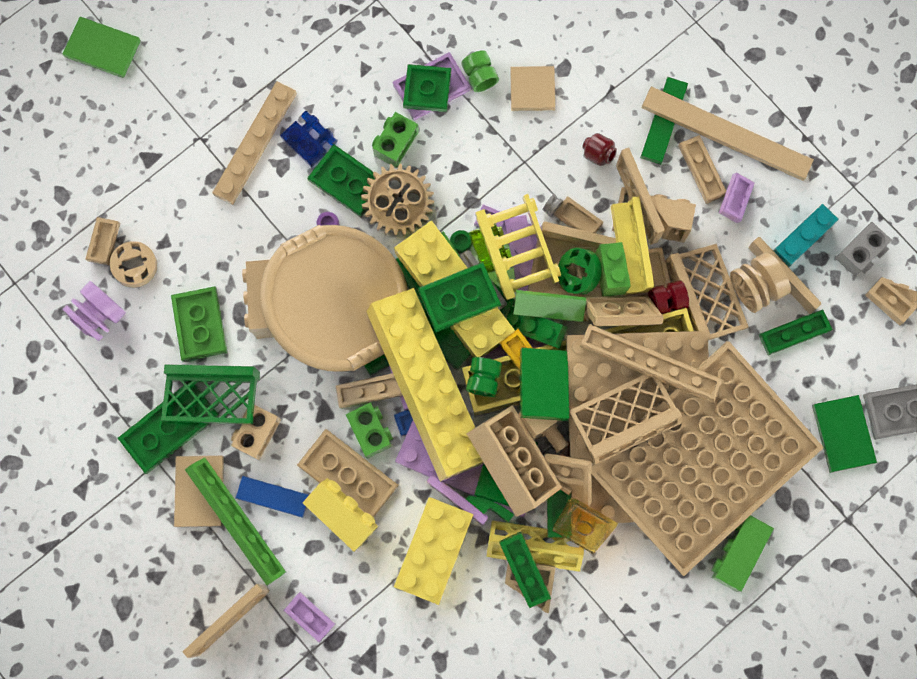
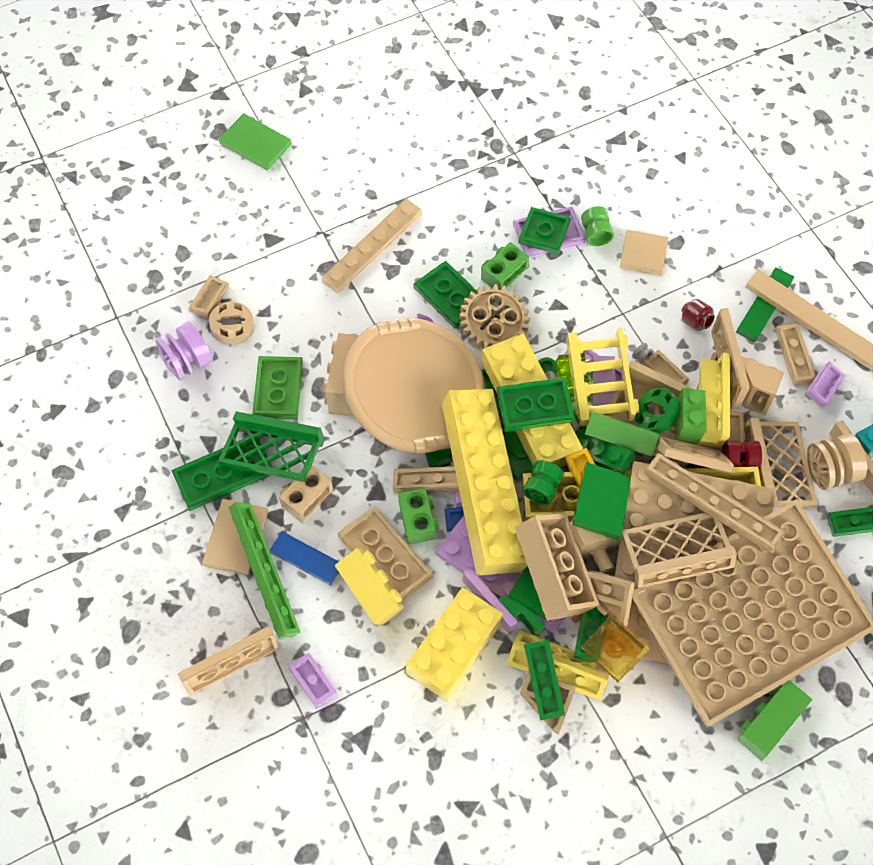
camera: 10 degrees right, 15 degrees down
(301, 142) = (418, 256): clear blue plate -> none

